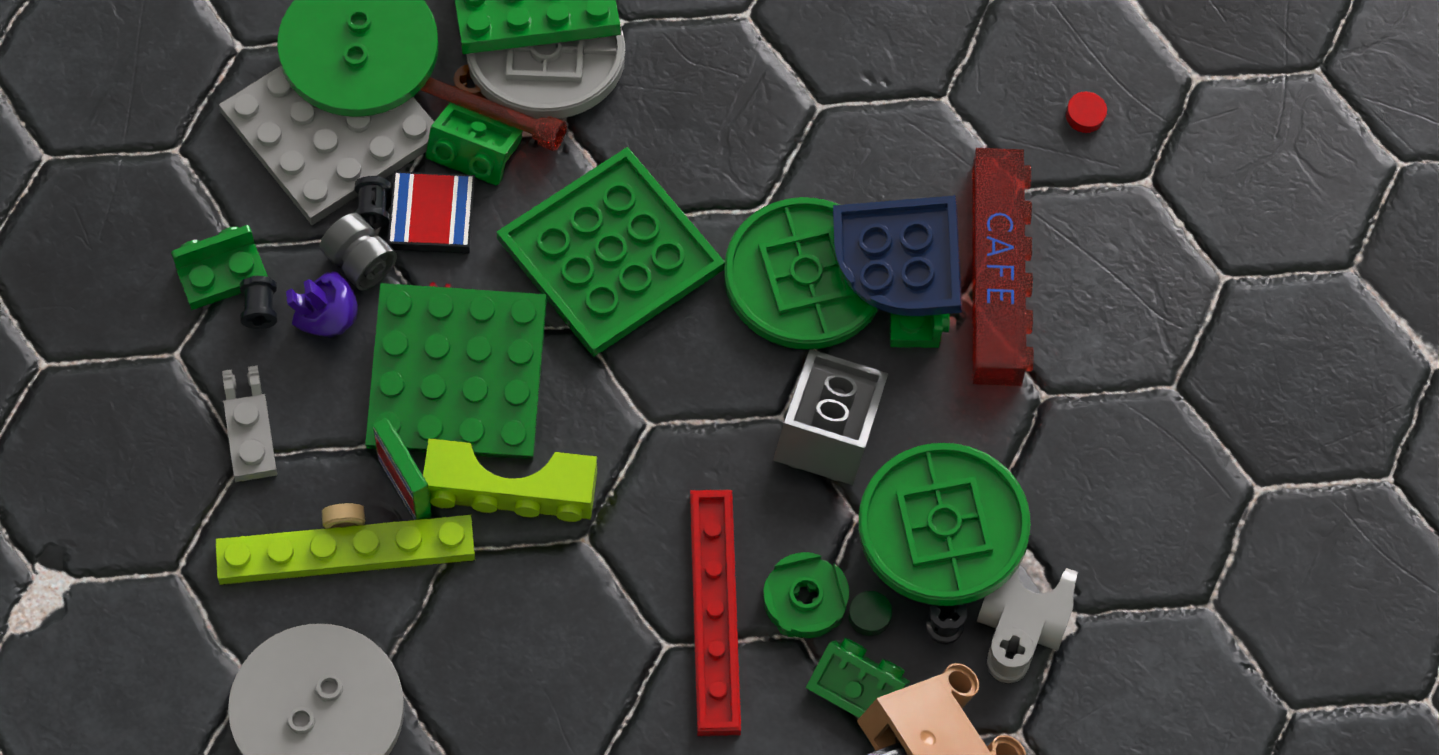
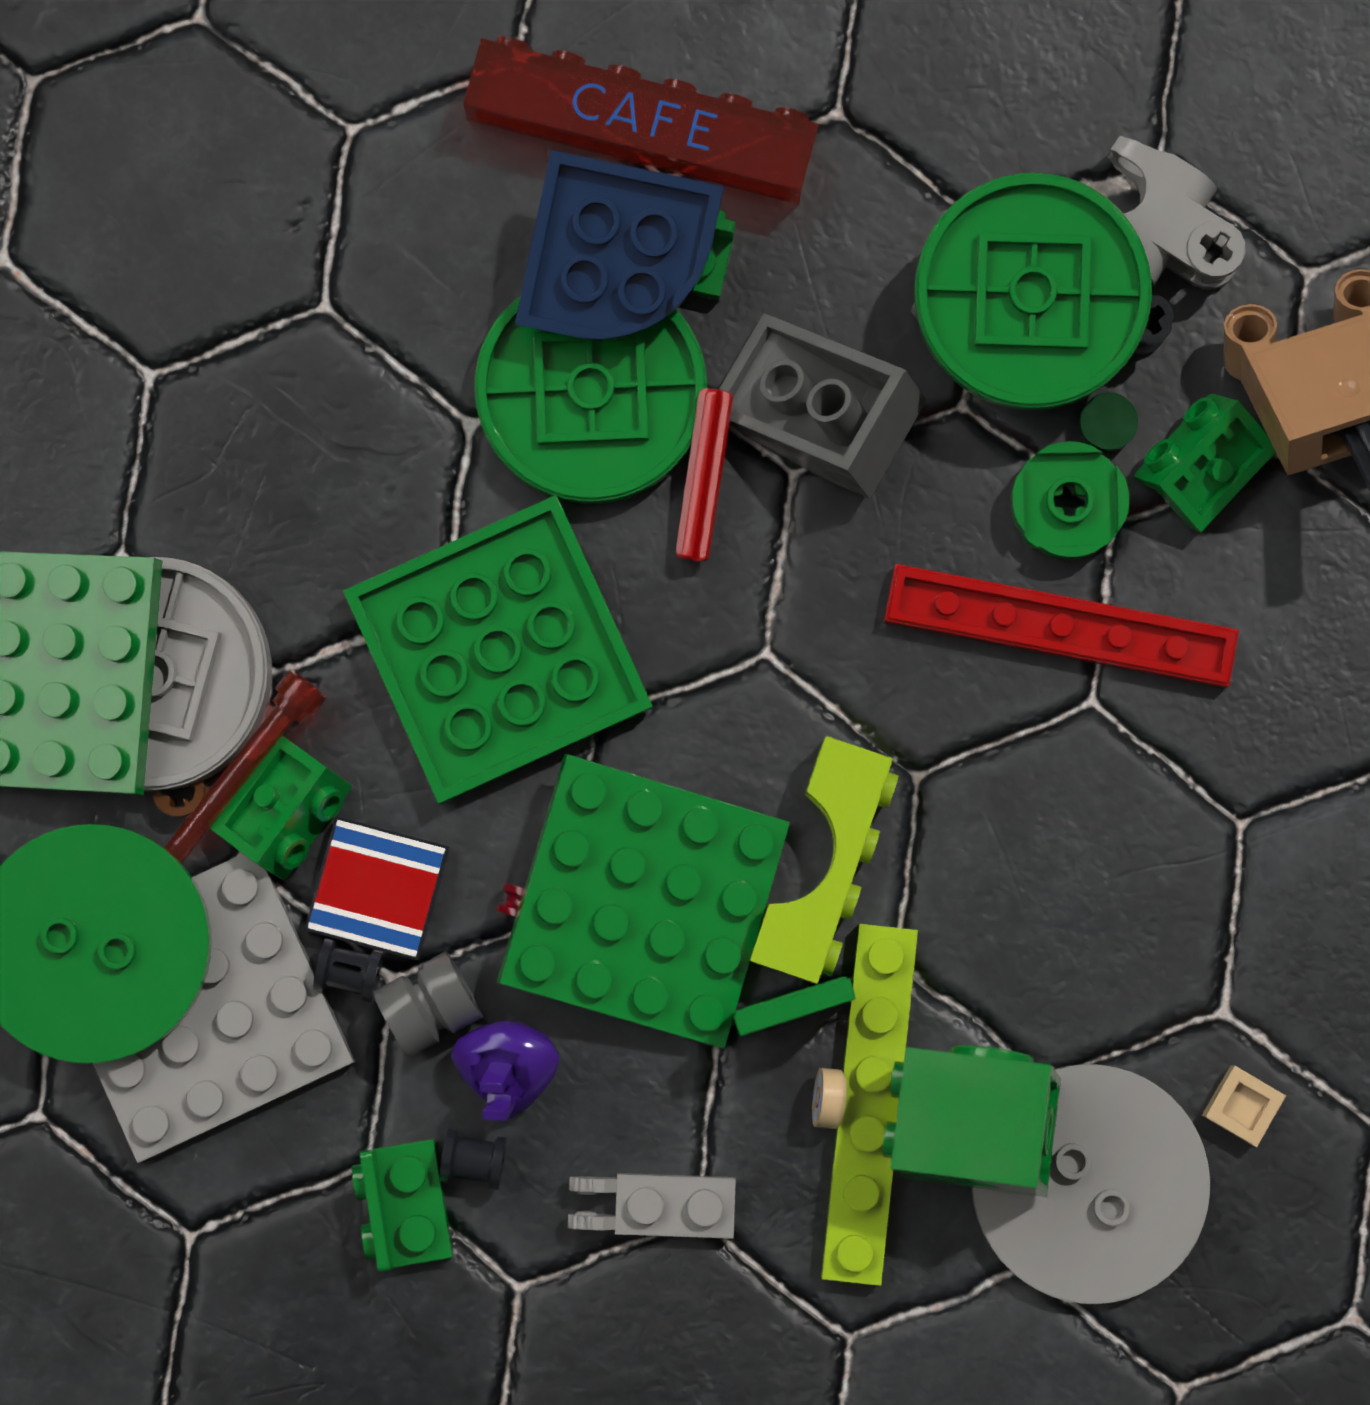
camera: 75 degrees left, 20 degrees up
(345, 600) = (974, 1119): none -> green brick
(762, 352) = (704, 475): none -> red axle

